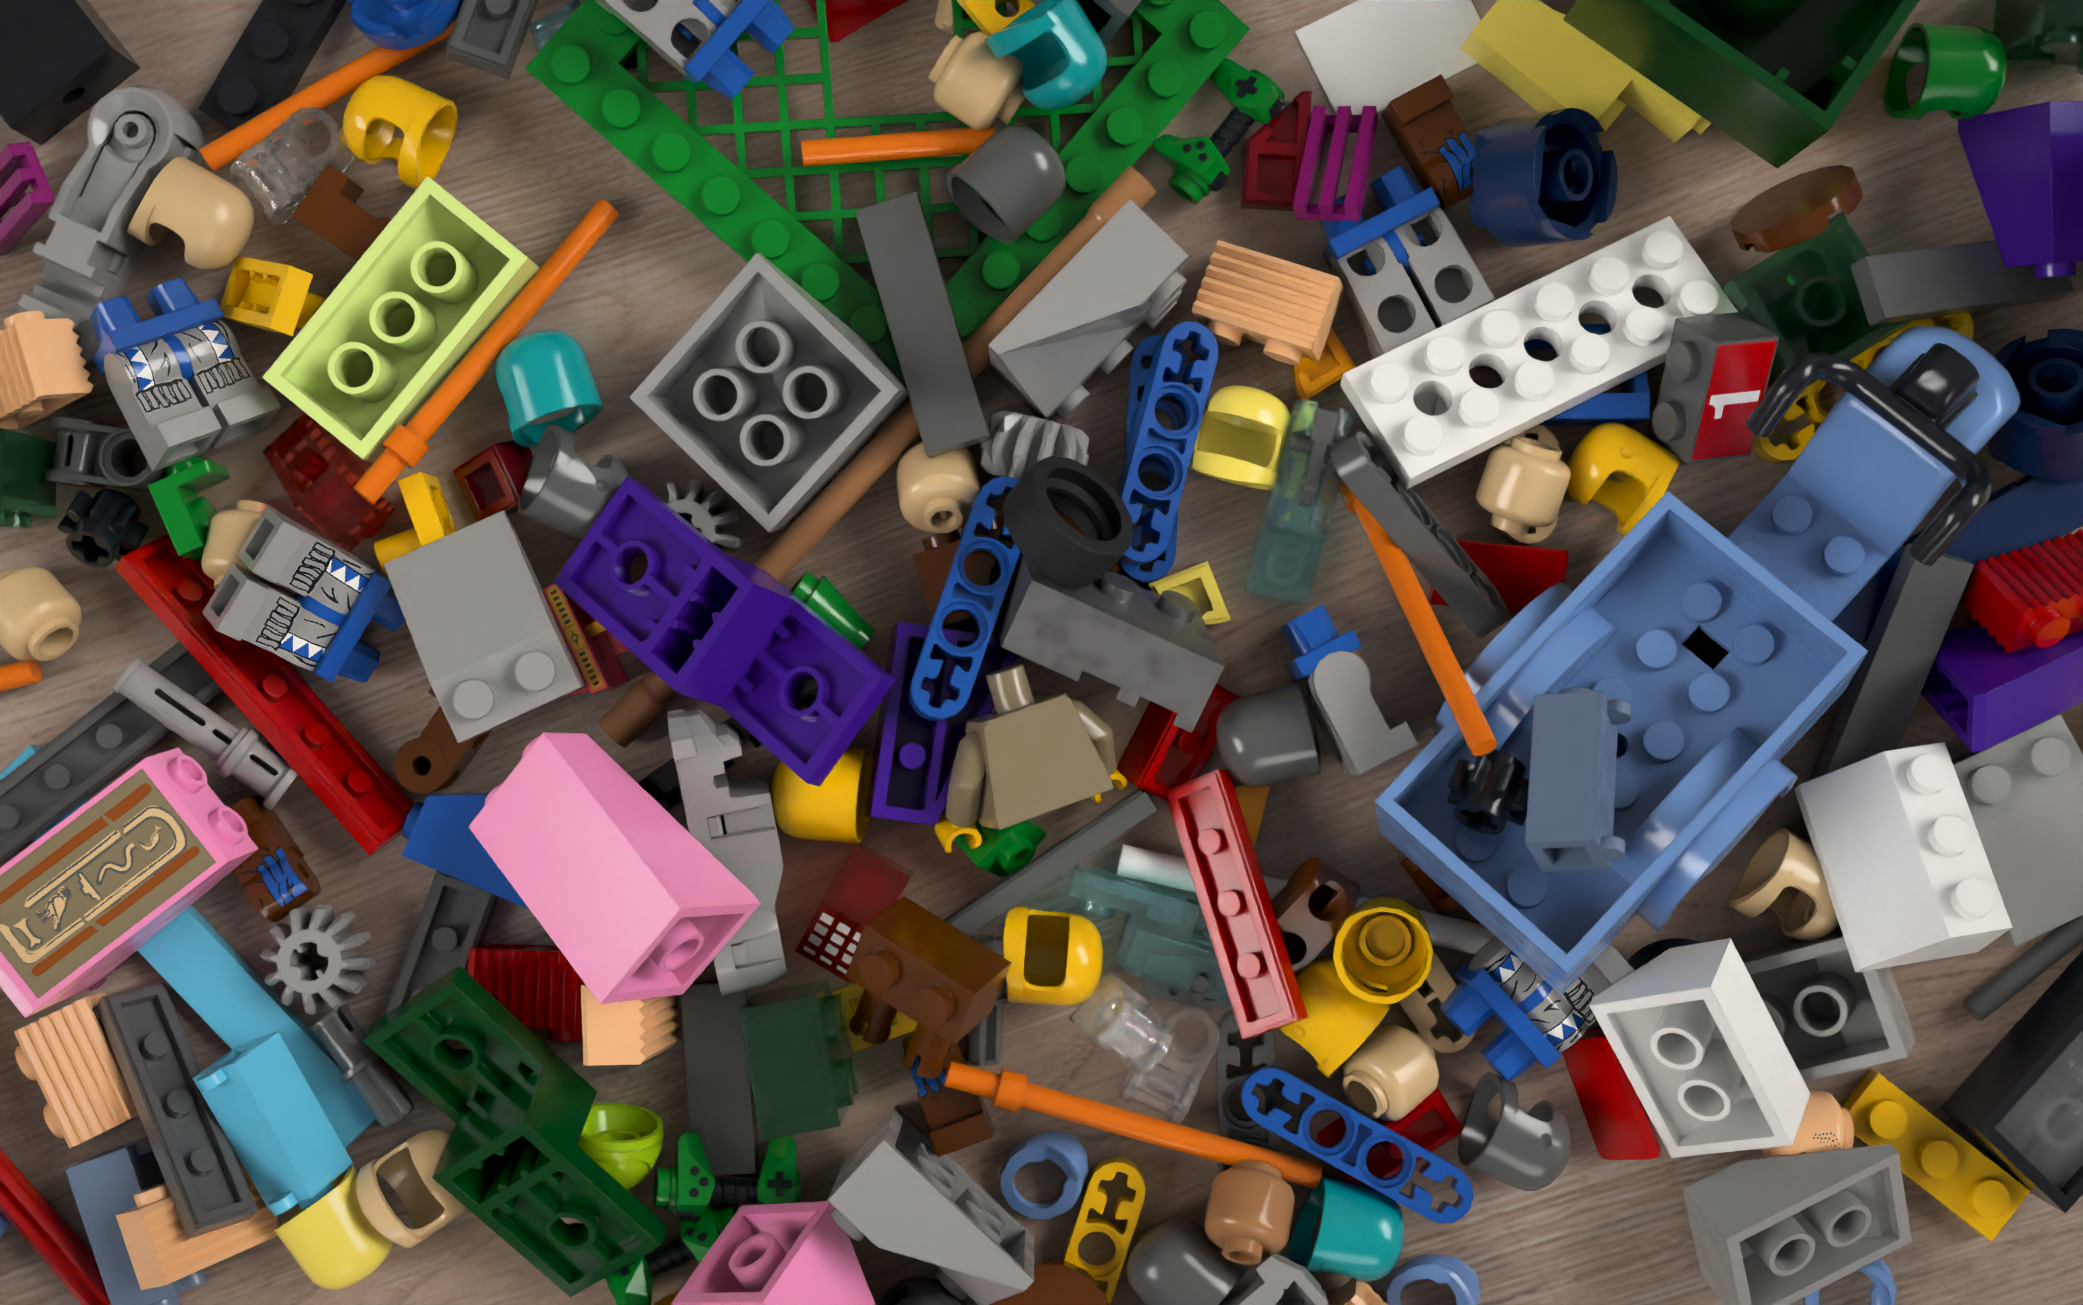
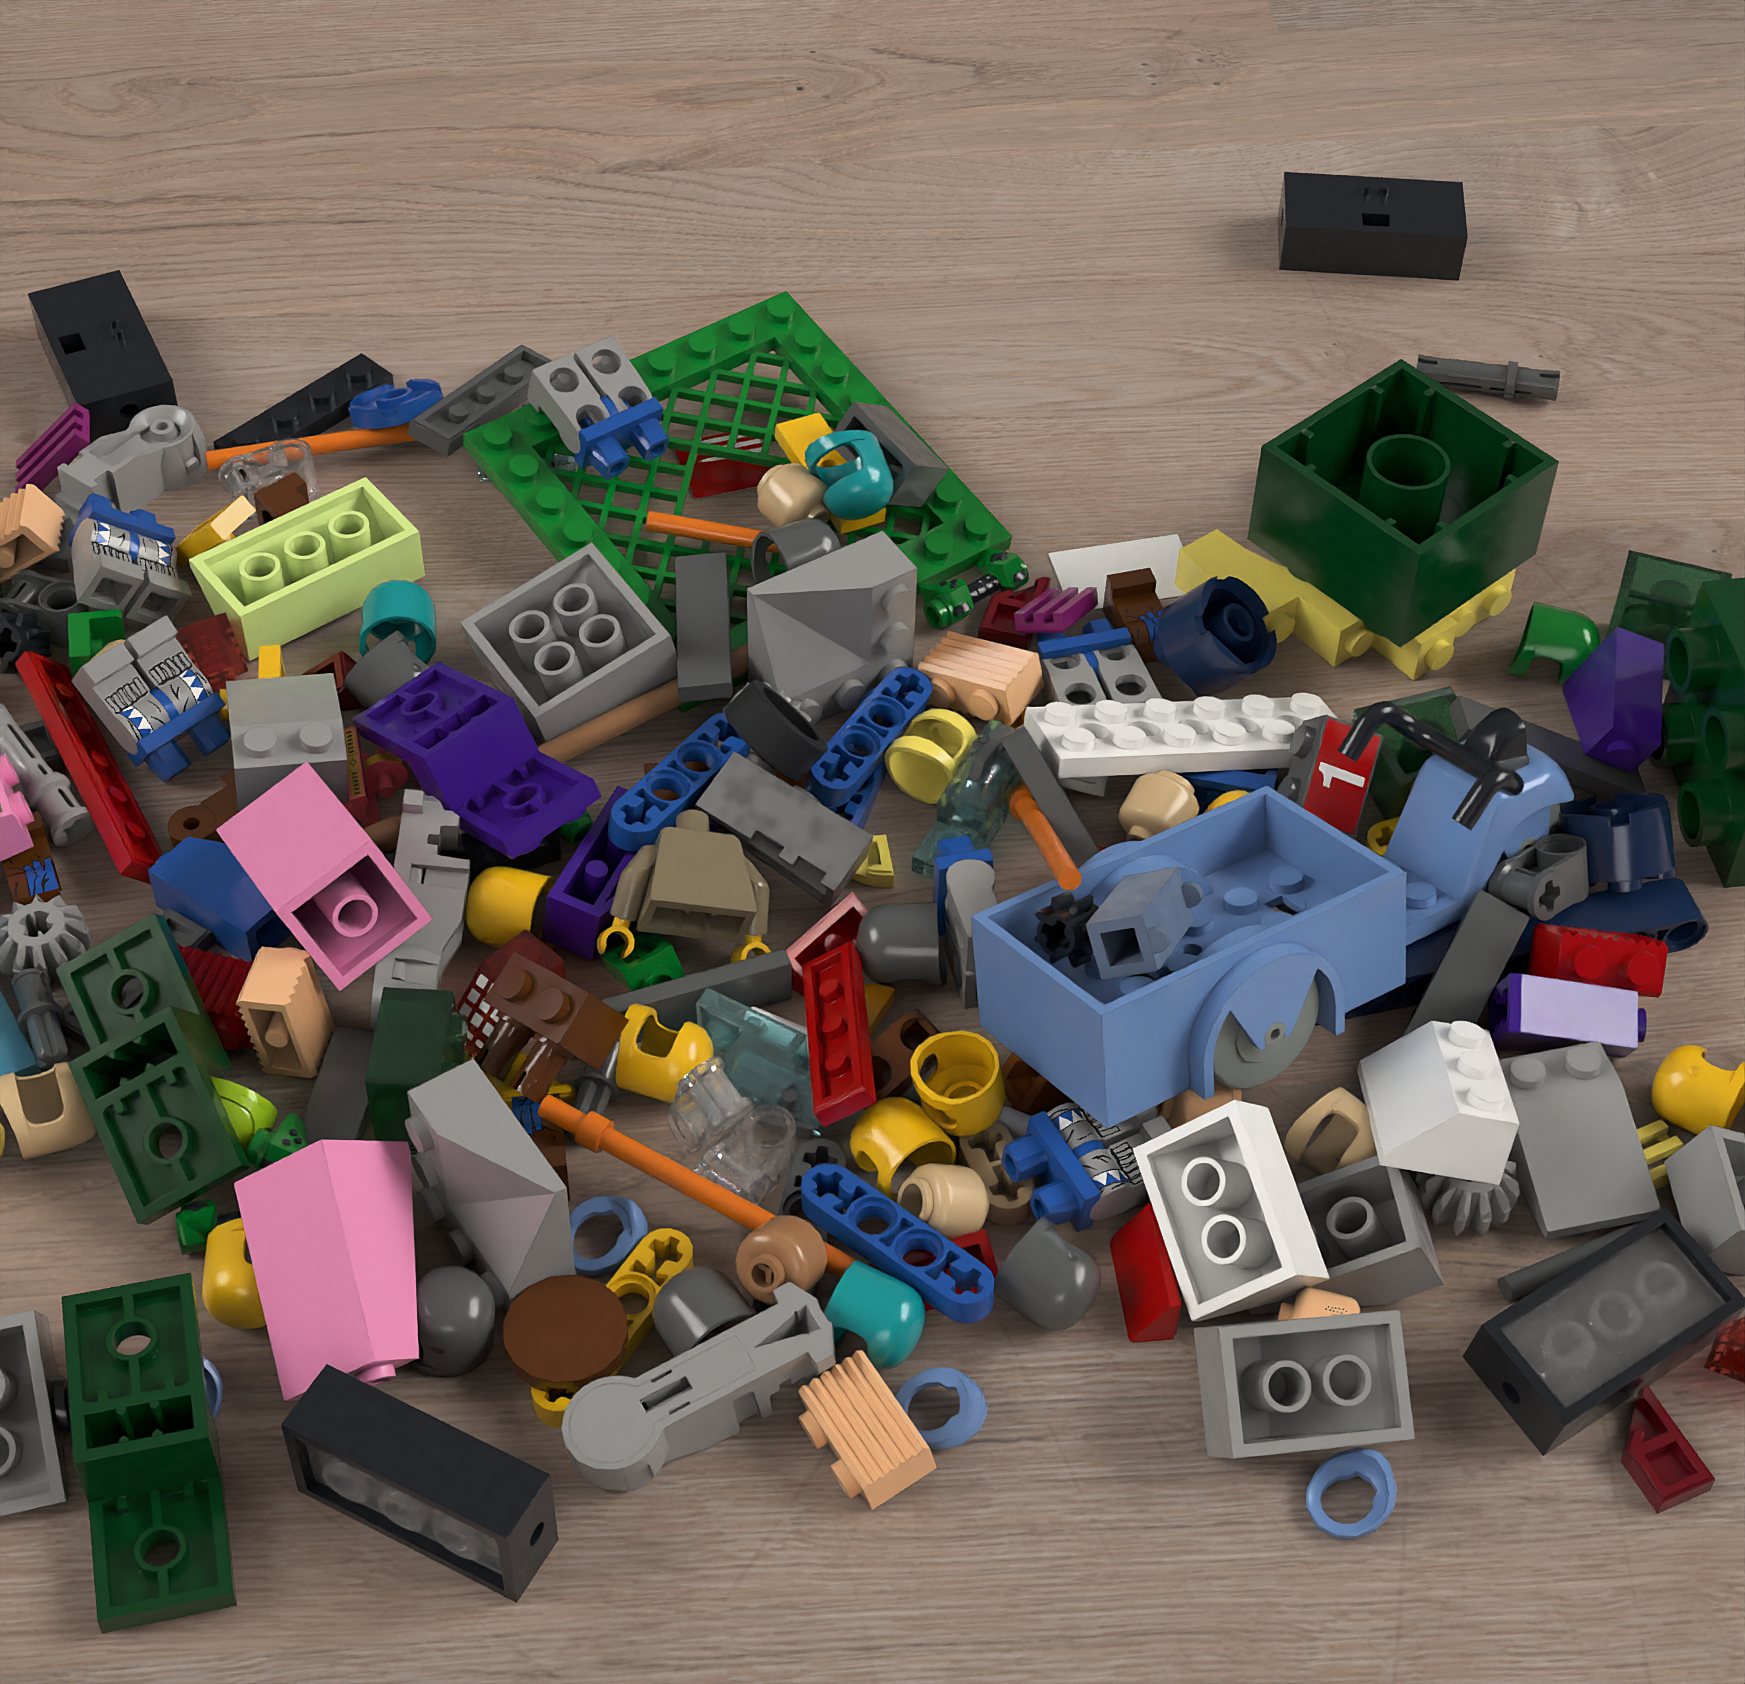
camera: 15 degrees right, 40 degrees down
(200, 208) = (194, 487): tan helmet -> none
(407, 444) = (280, 621): orange bar -> none
(423, 117) = (352, 456): yellow helmet -> none
(937, 490) = (673, 717): tan head -> none
(1796, 209) = (1421, 679): reddish brown tile -> none
(1935, 1156) = (1464, 1407): yellow plate -> none
(1989, 524) = (1544, 876): none -> dark grey piece

